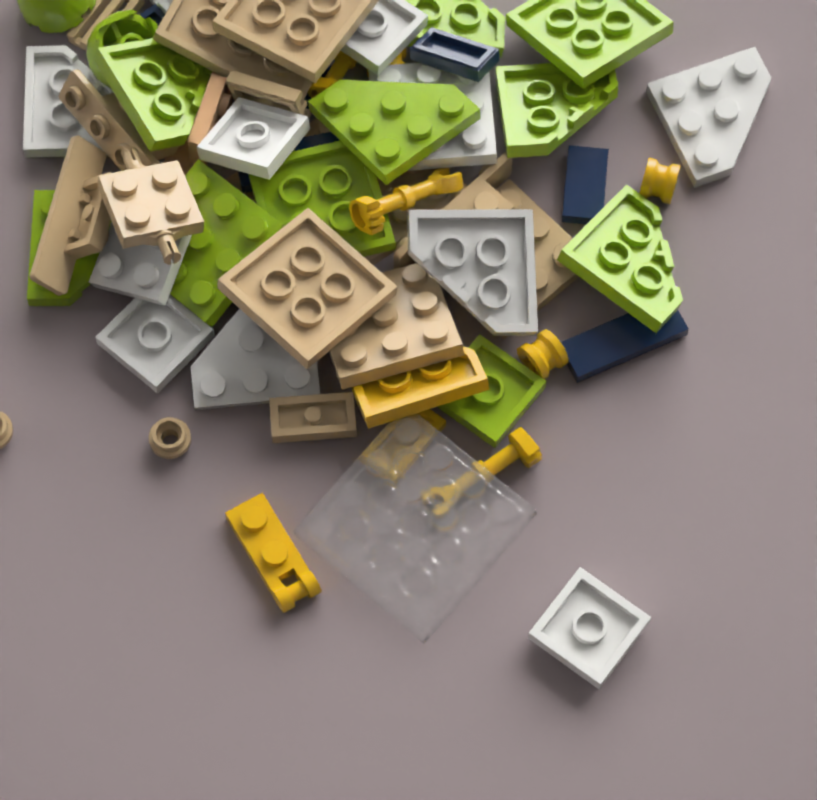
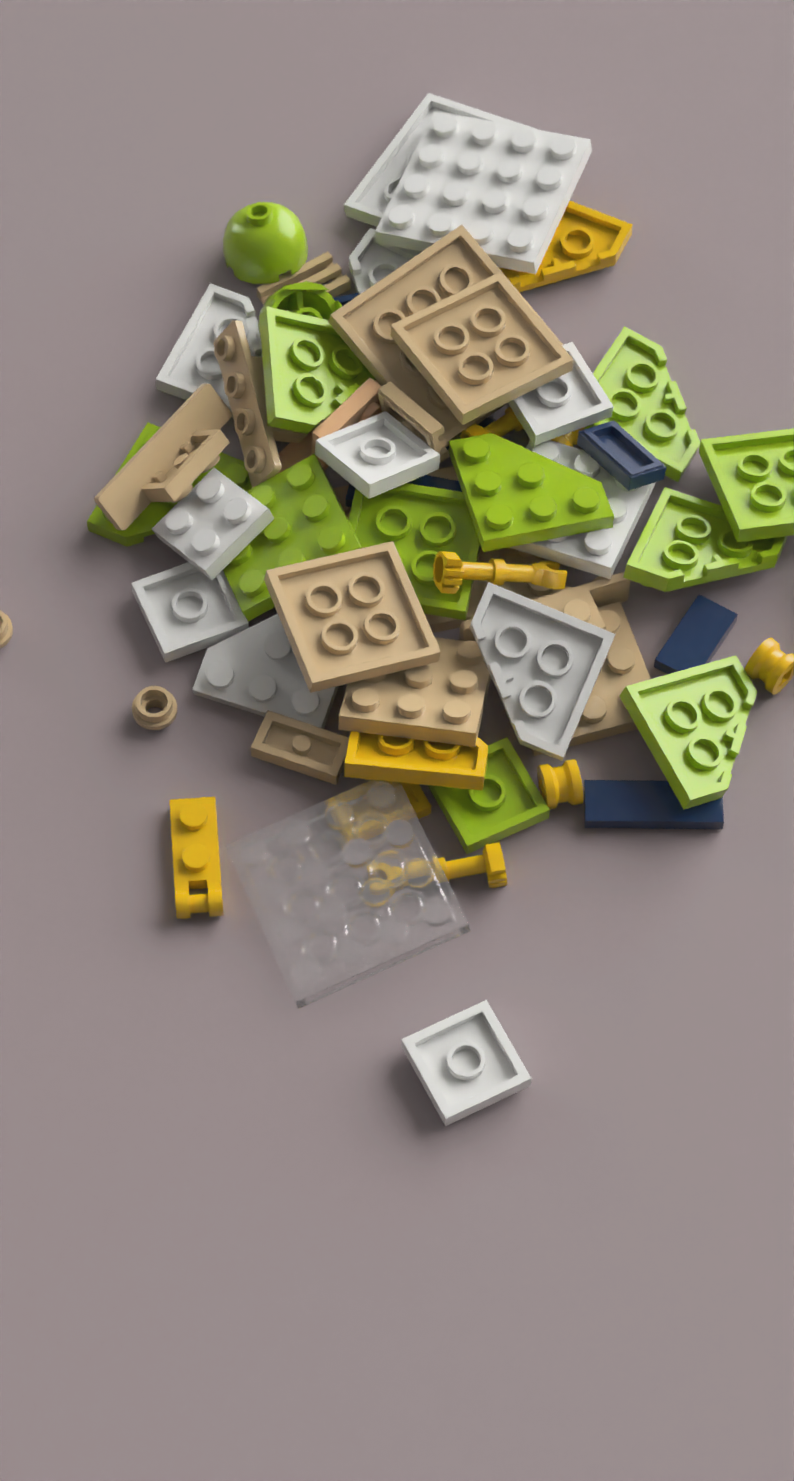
camera: 25 degrees right, 5 degrees down
(150, 205) = (240, 475): tan plate -> none

